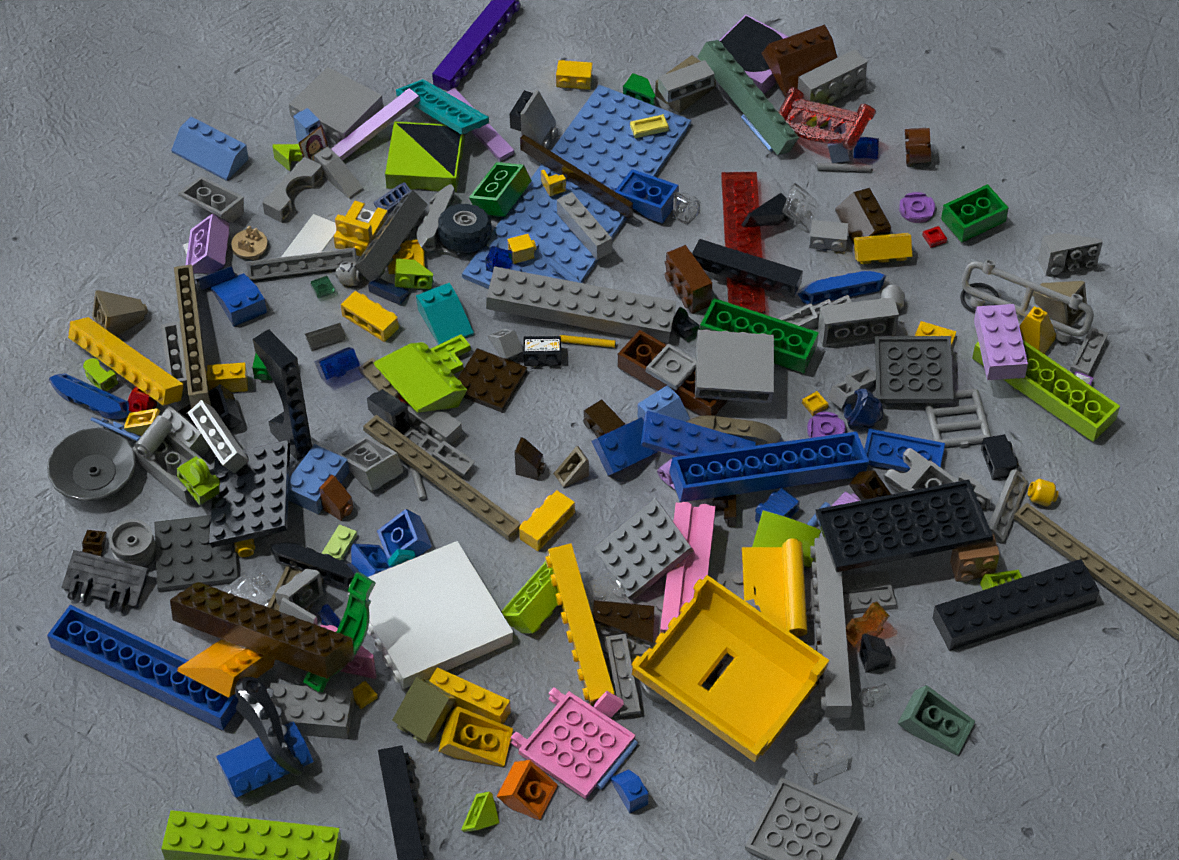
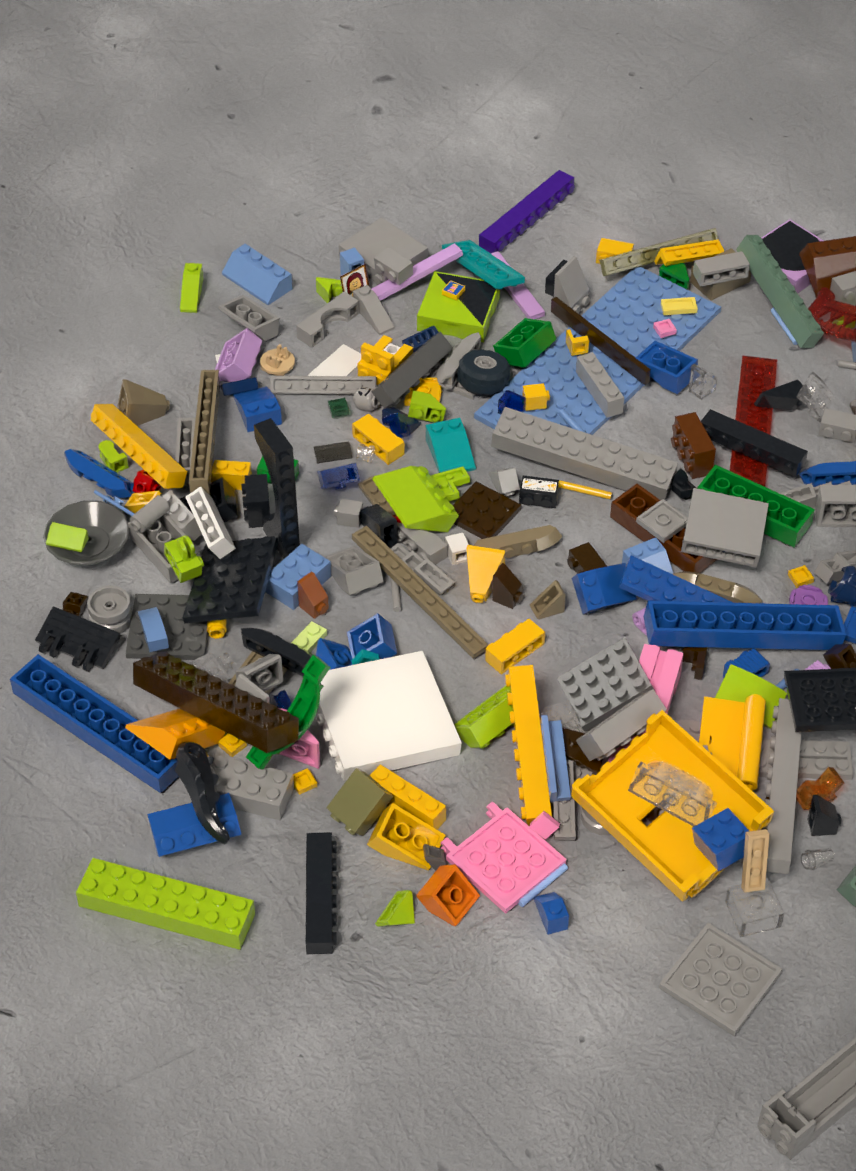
camera: 10 degrees right, 5 degrees down
(73, 473) = (67, 537): none -> lime slope
(143, 173) = (191, 287): none -> lime slope
(181, 559) = (153, 629): none -> medium blue slope
(258, 402) = (256, 499): none -> black brick
(282, 669) = (231, 744): none -> yellow plate
(351, 122) = (393, 266): none -> light grey brick
(355, 402) = (348, 513): none -> light grey brick
(359, 334) = (365, 453): none -> clear wheel
(386, 298) = (397, 424): none -> clear blue panel
(417, 141) = (453, 290): none -> tile
(472, 424) = (457, 548): none -> white brick
(501, 444) = (481, 567): none -> yellow slope
(506, 752) = (434, 856): none -> dark grey slope
(529, 410) = (522, 541): none -> dark tan brick
(608, 636) = (555, 760): none -> medium blue fence
(619, 67) = (648, 254): none -> olive tile
(639, 153) = (664, 328): none -> bright pink tile
(650, 65) = (688, 252): none -> yellow fence
(668, 594) = (620, 726): none -> light grey brick
(731, 655) = (673, 791): none -> clear windscreen
(785, 695) = (721, 839): none -> blue brick
(818, 712) = (755, 860): none -> tan plate

